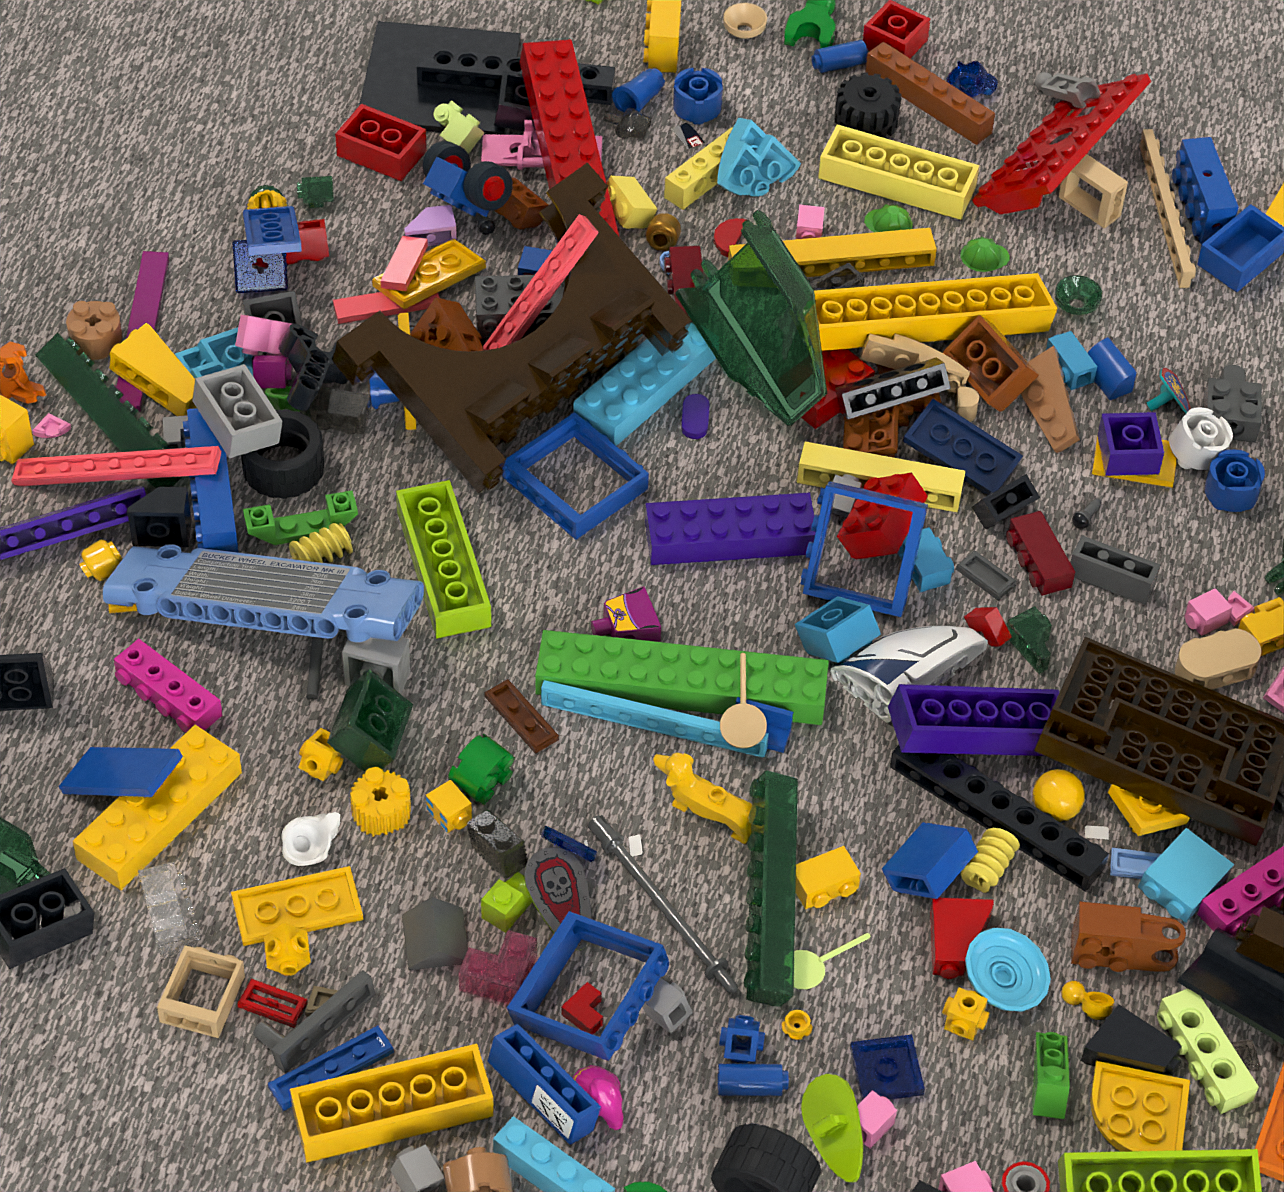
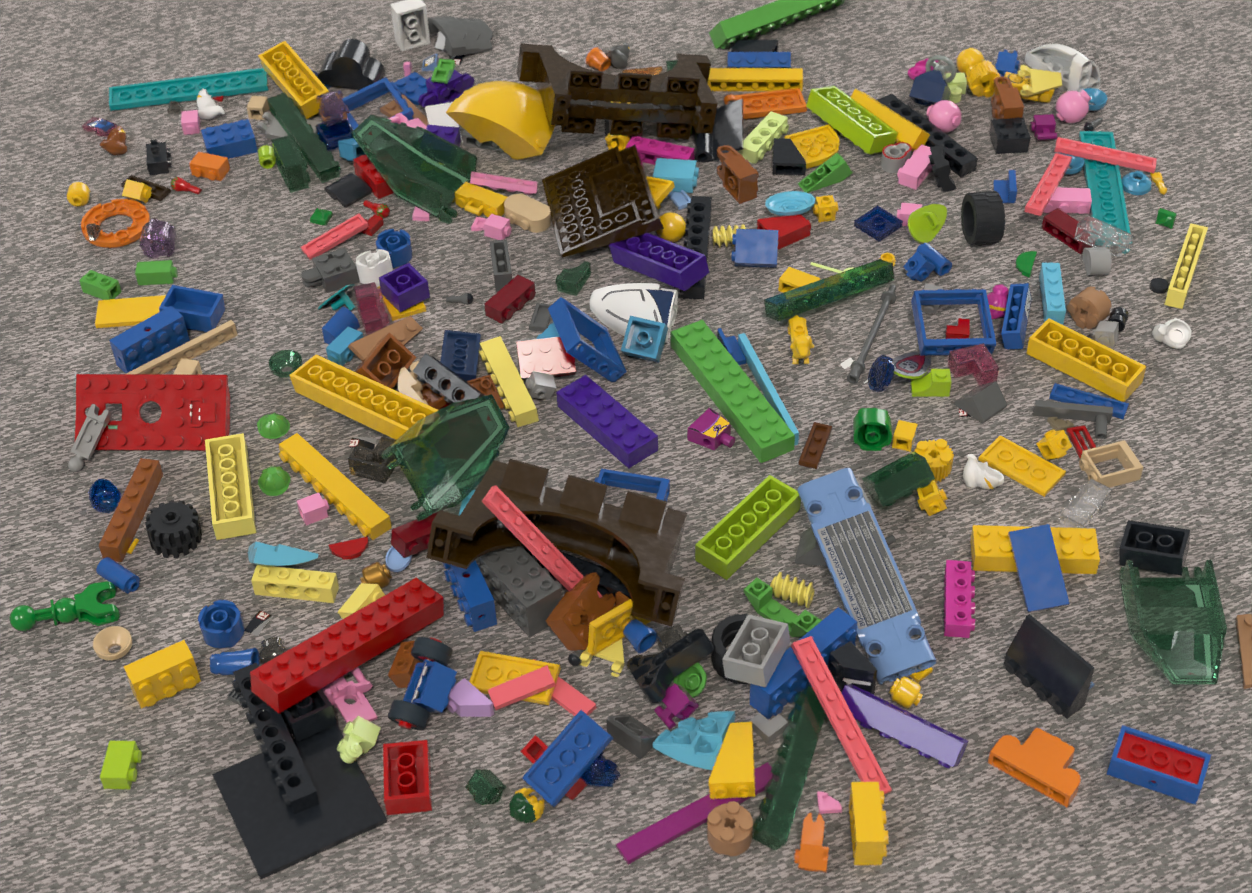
camera: 120 degrees left, 5 degrees down
(260, 334) = (655, 717): bright pink brick -> none
(497, 844) = (909, 400): clear smoke brick -> none
(743, 723) = (740, 341): tan piece -> none
(897, 27) = (75, 552): red brick -> none
(990, 623) = (580, 296): red piece -> none
(1006, 502) = (487, 321): black brick -> none
(1095, 1004) = (774, 177): yellow plate -> none
(1125, 399) = (370, 307): none -> clear pink brick

